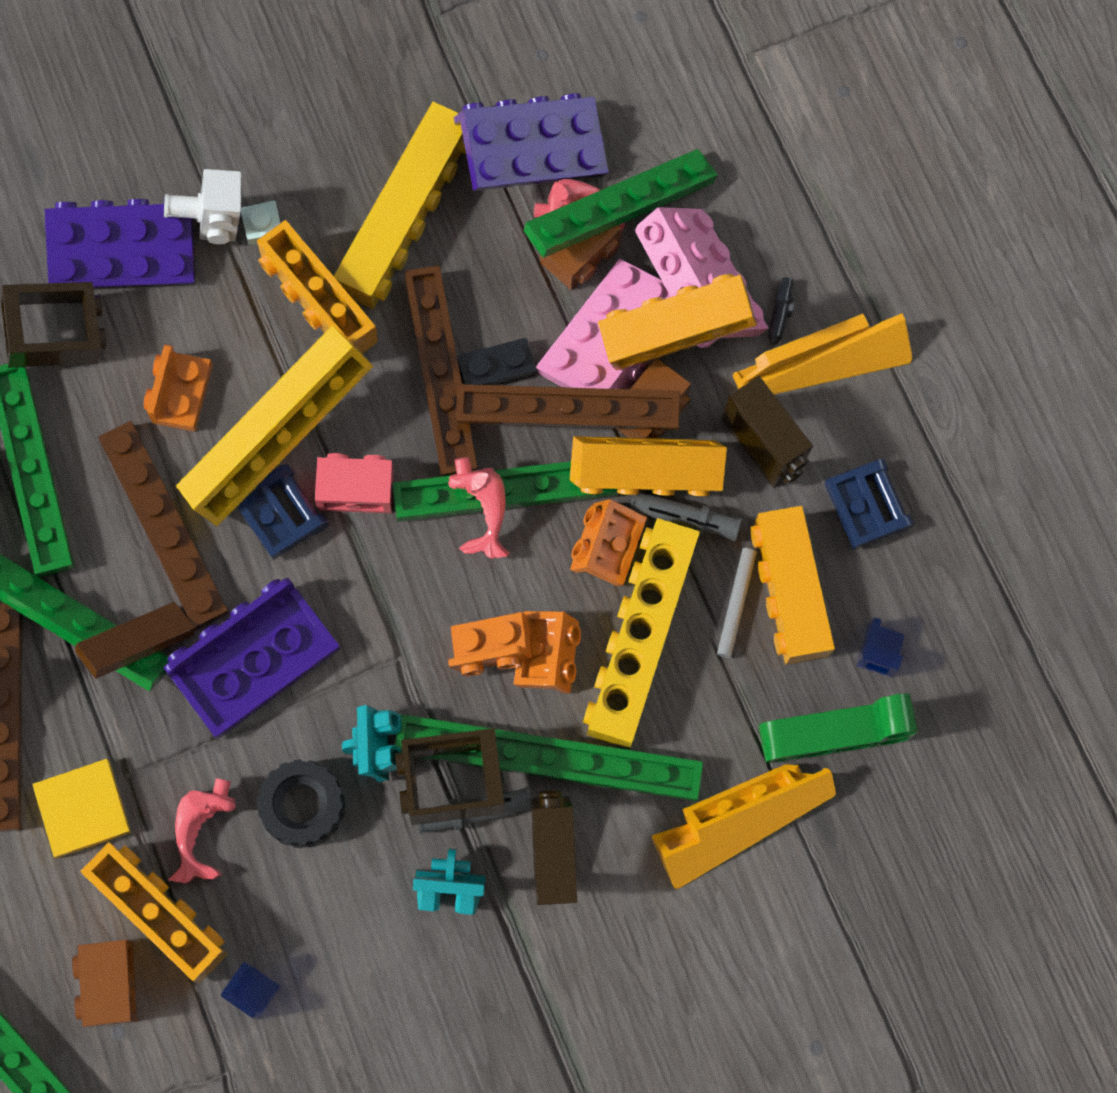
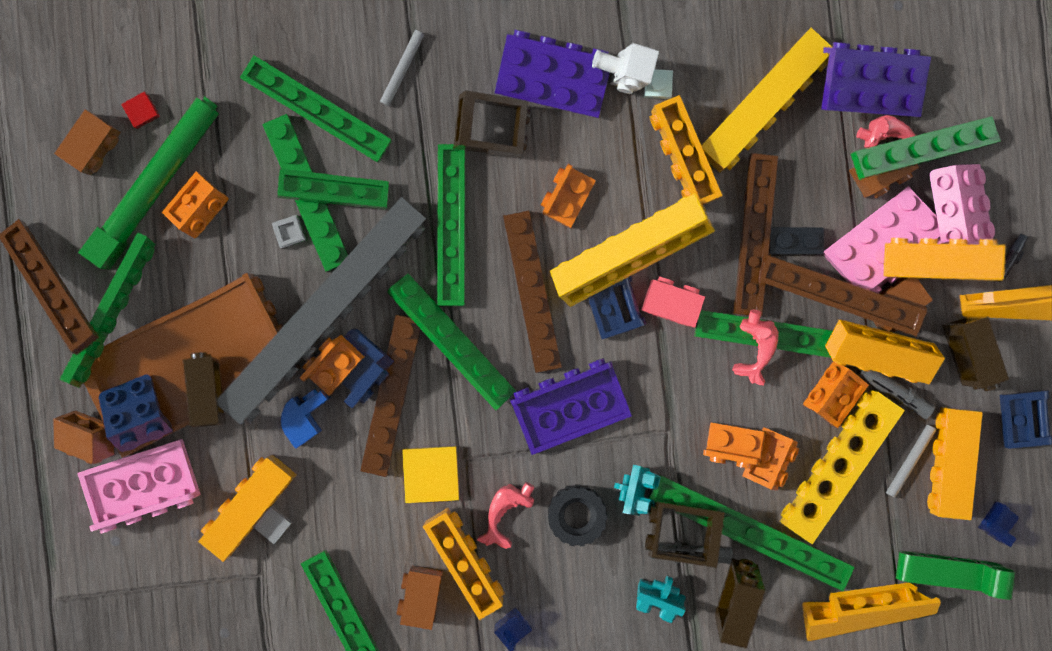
camera: 20 degrees right, 15 degrees up
(134, 640) = (495, 374): reddish brown tile -> none

